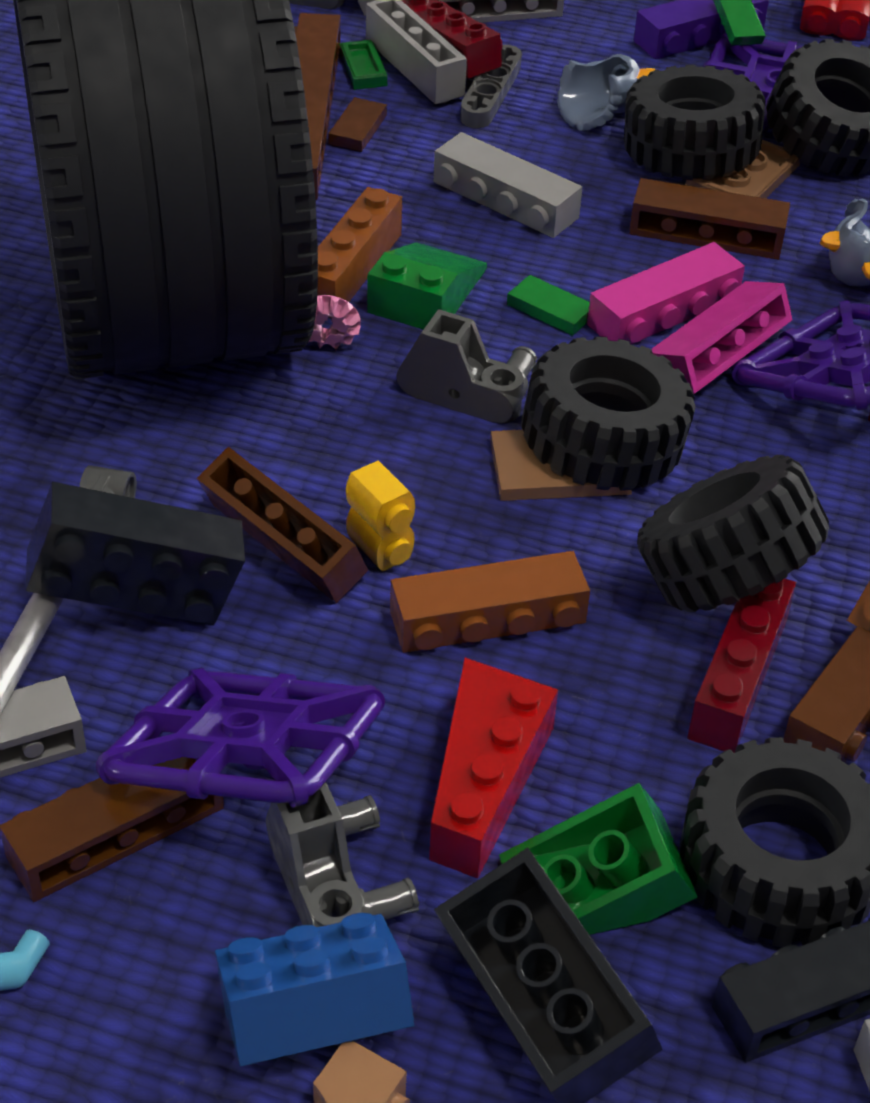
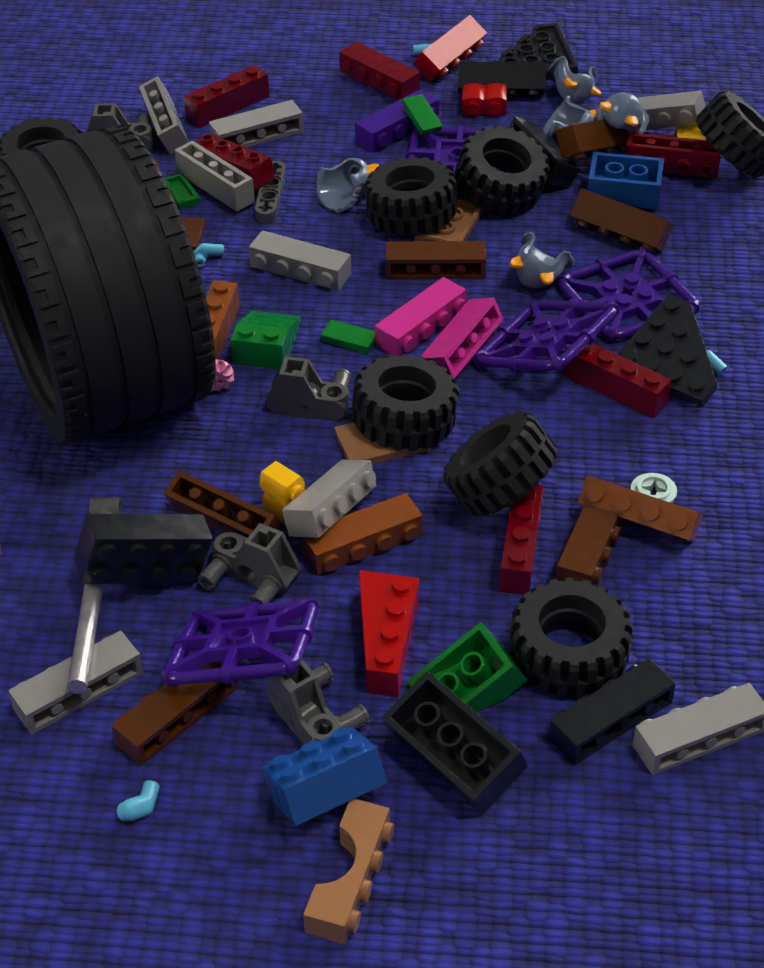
camera: 10 degrees left, 0 degrees up
(311, 606) = (259, 560): none -> dark grey piece
(371, 148) = (205, 250): none -> medium azure arm
(449, 536) = (329, 498): none -> light grey brick

